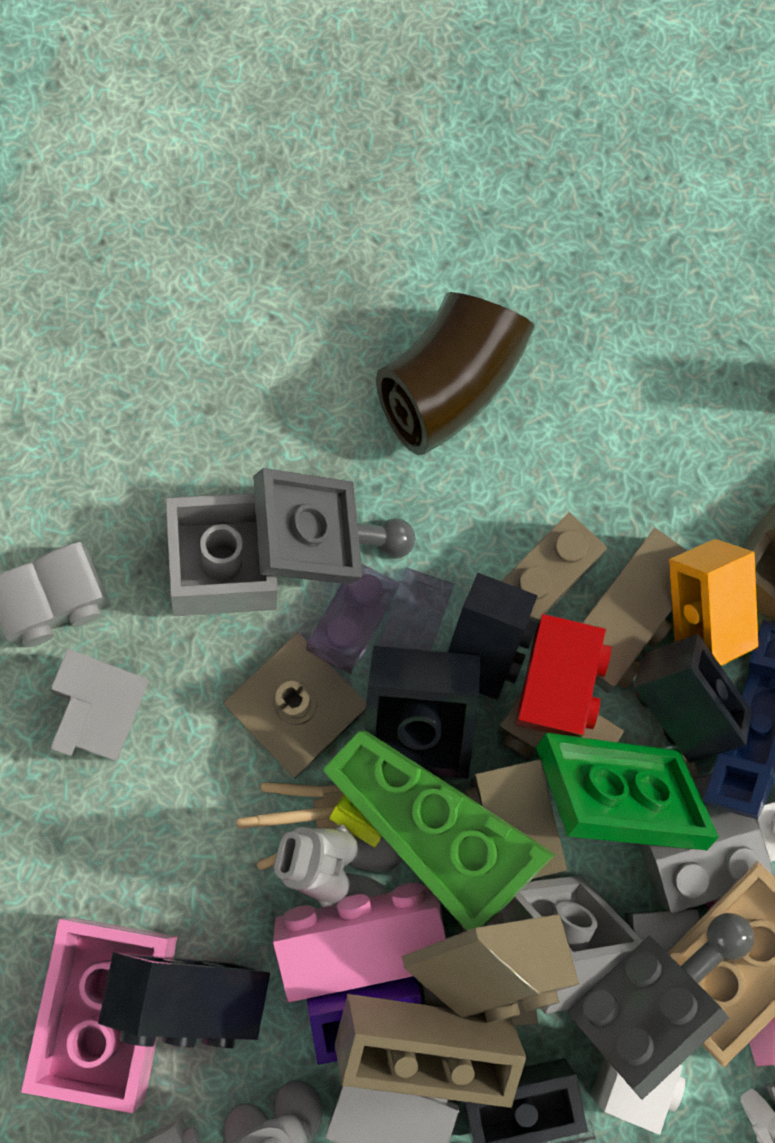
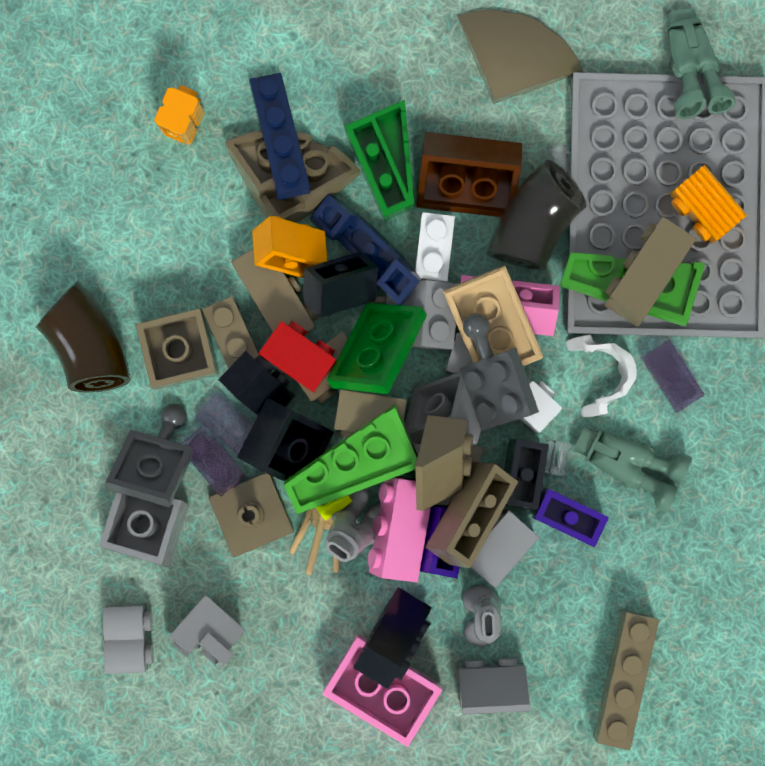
camera: 70 degrees left, 10 degrees up
(495, 501) = (177, 349): none -> dark tan brick

